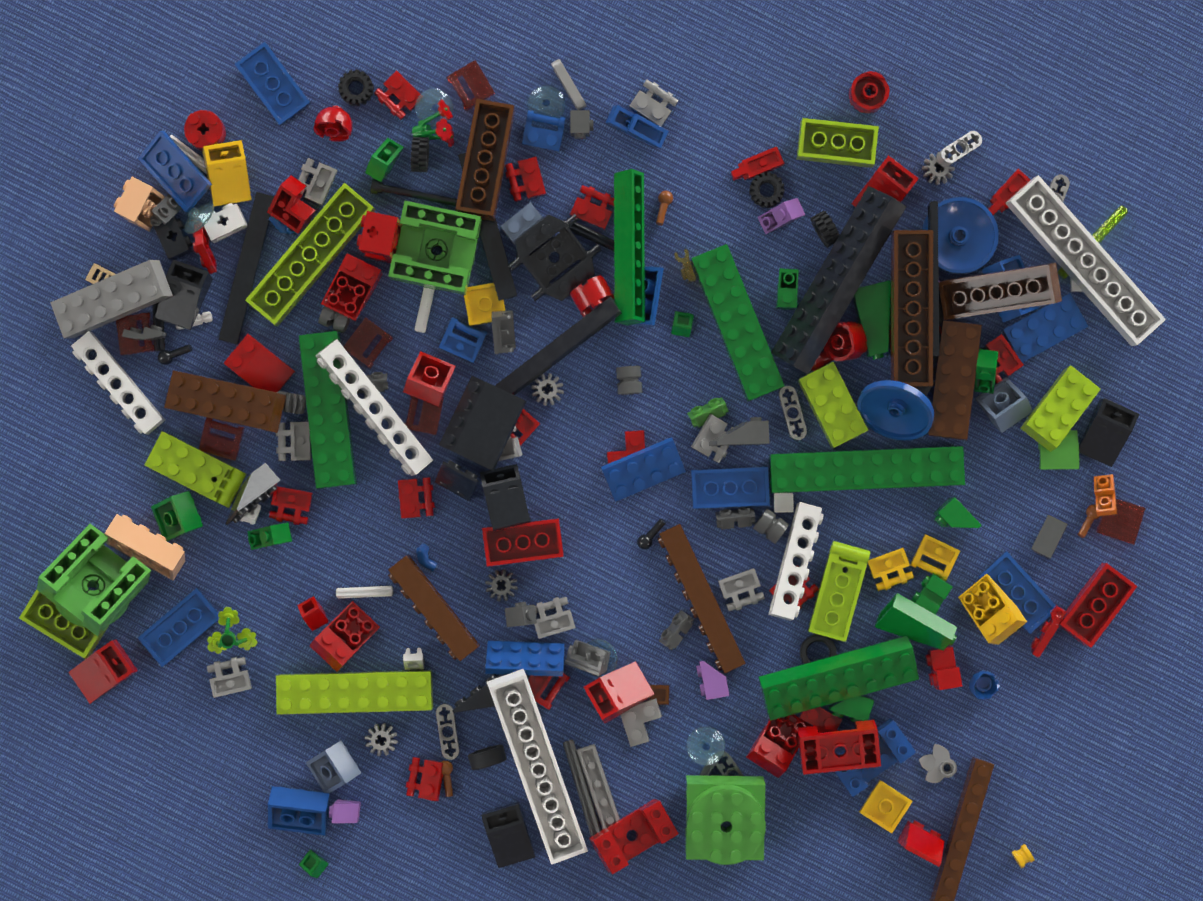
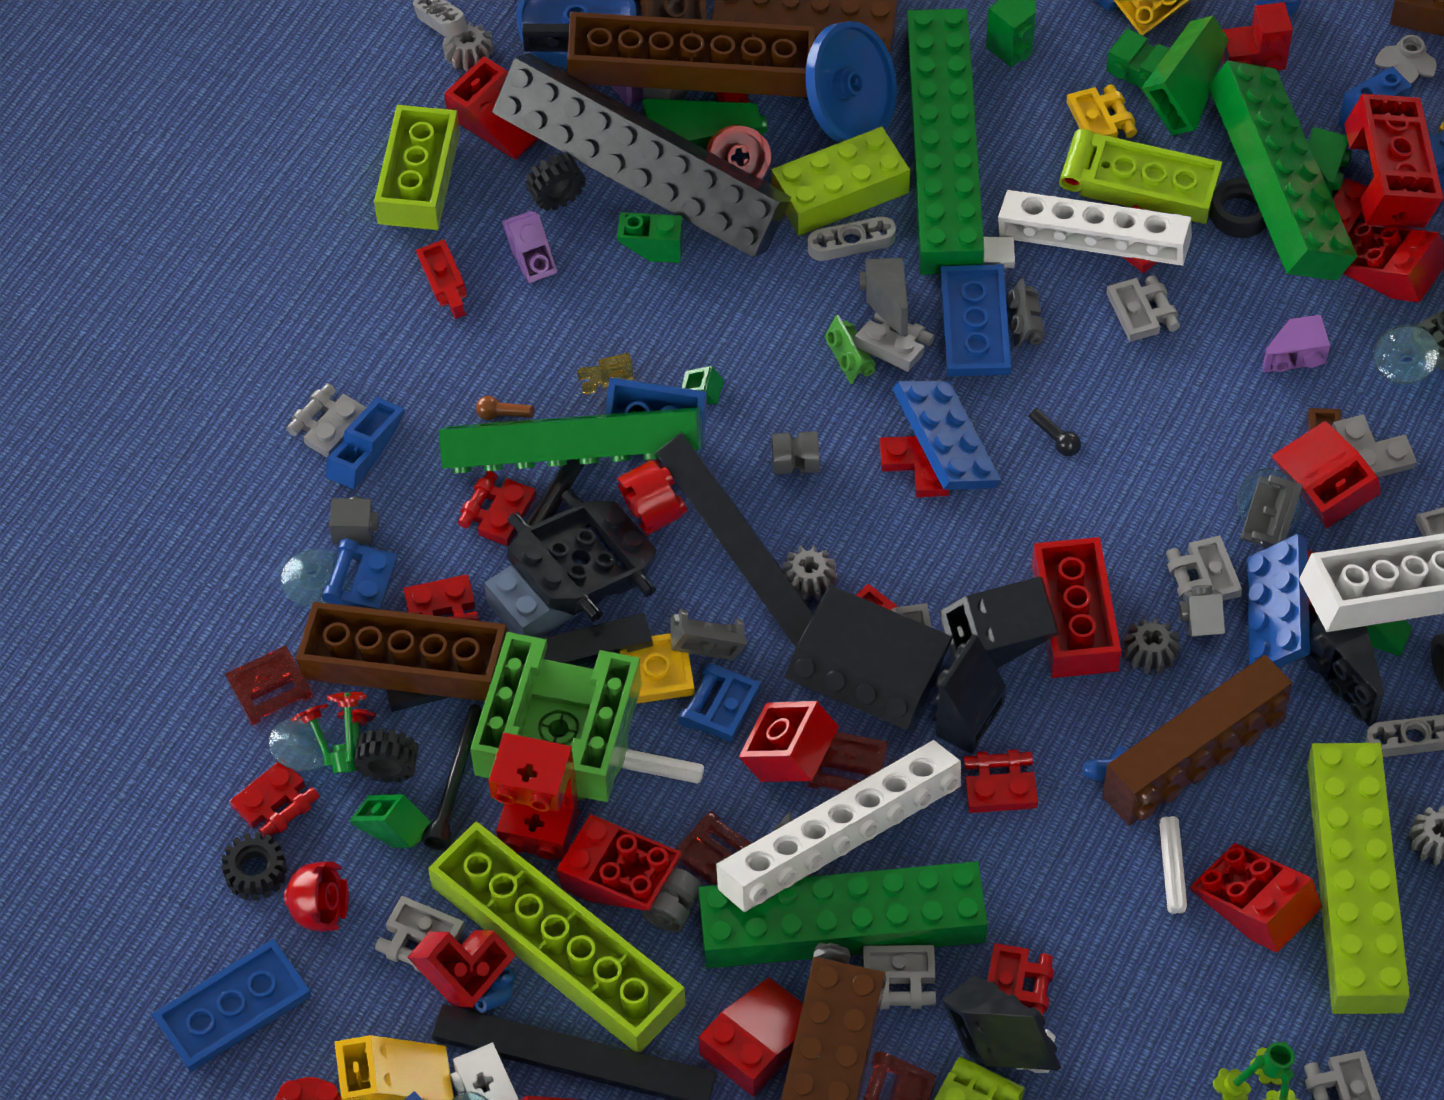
camera: 85 degrees left, 30 degrees down
(269, 536) = (1077, 1018): green slope -> none
(313, 613) = (1217, 940): red brick -> none
(413, 661) = (1293, 781): white tile -> none
(568, 84) = (283, 538): light grey beam -> none
(670, 636) = (1213, 398): dark grey hinge -> none
(702, 599) = (1159, 359): reddish brown brick -> none
(737, 322) = (705, 302): green brick -> none
(766, 201) = (481, 252): black tyre -> none
(770, 526) = (1038, 261): dark grey wheel -> none
(879, 92) = (340, 127): red brick -> none
(937, 551) = (1072, 54): yellow plate -> none

